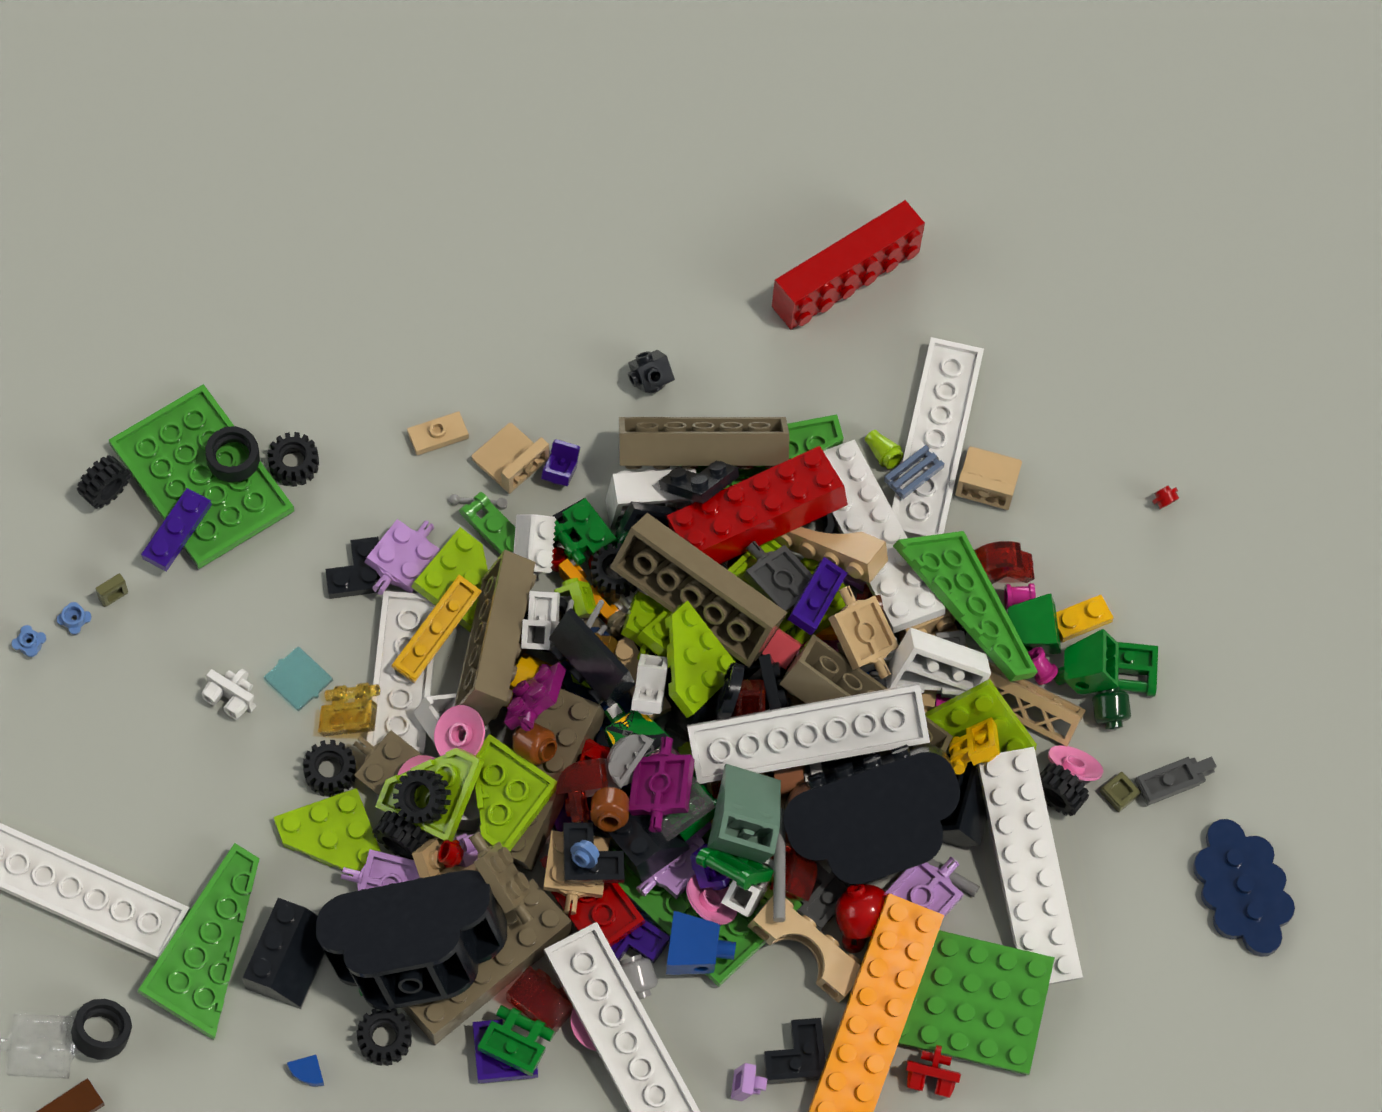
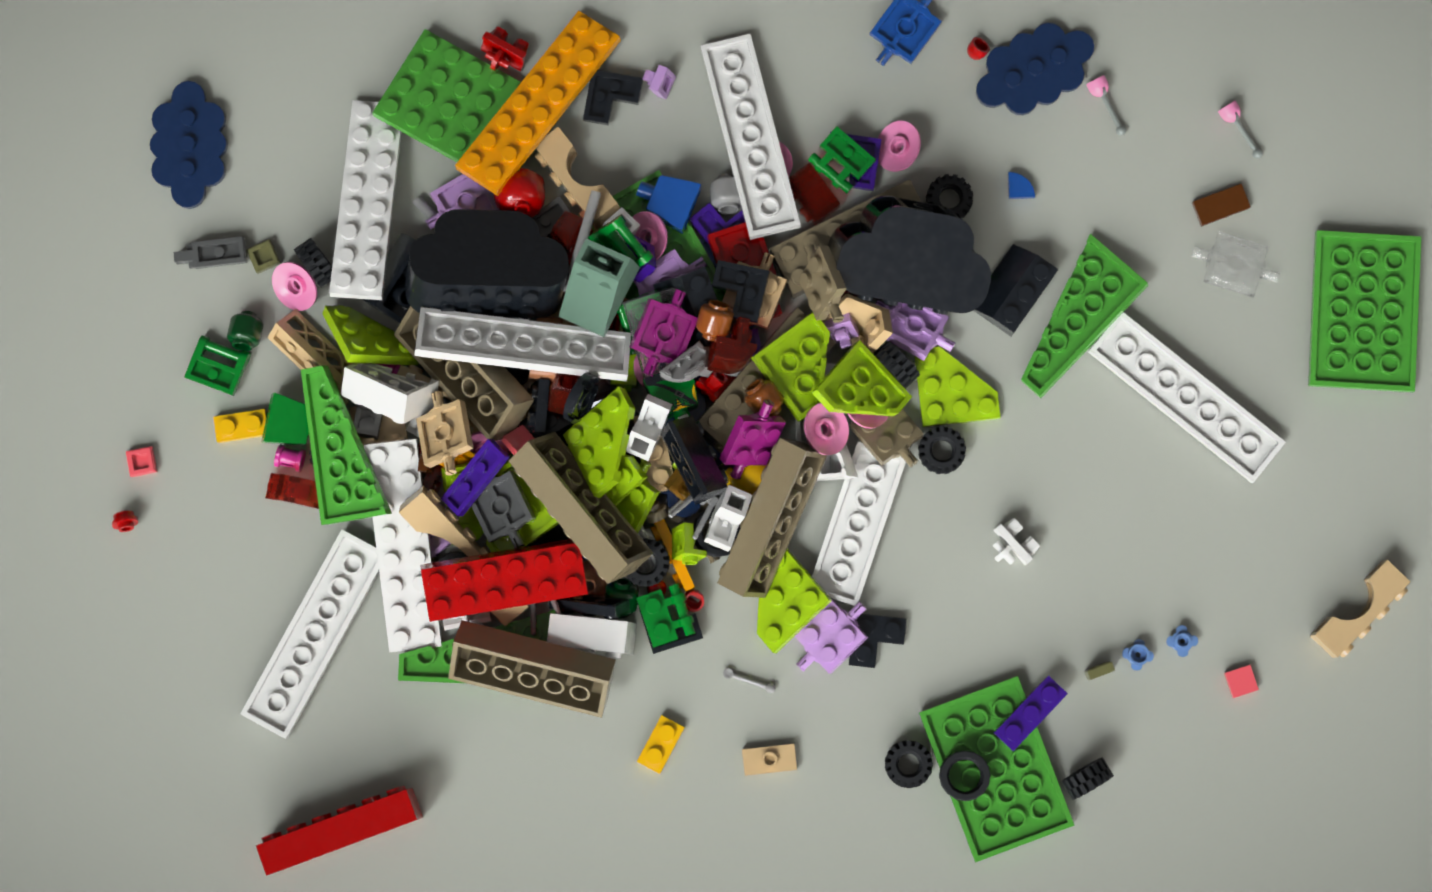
camera: 150 degrees left, 20 degrees up
(107, 1009) = (1169, 246): black tyre -> none
(298, 678) = (950, 546): clear light blue piece -> none
(349, 717) = (916, 490): clear yellow plate -> none
(407, 792) = (883, 373): black tyre -> none
(436, 628) = (819, 550): yellow tile -> none
(450, 853) = (859, 325): red plate -> none
(461, 1068) = (892, 140): none -> bright pink dish
(493, 526) = (739, 644): bright green plate -> none
(511, 457) = (709, 716): tan bracket -> none
(535, 540) = (711, 613): white brick -> none
(553, 418) = (660, 744): none -> yellow plate
(561, 463) = (665, 694): dark purple bracket -> none
(585, 854) = (747, 283): medium blue plate -> none
(650, 371) = (557, 768): black brick -> none
(699, 486) = (548, 611): black plate -> none
(886, 451) = (365, 635): lime cone -> none
(929, 458) = (325, 609): sand blue tile -> none
(977, 746) = (372, 308): yellow plate -> none
(988, 478) = (278, 583): tan bracket -> none
(1045, 669) = (292, 380): dark pink bush -> none
(1091, 664) = (251, 368): green torso -> none
(1171, 560) = (141, 461): none -> coral tile

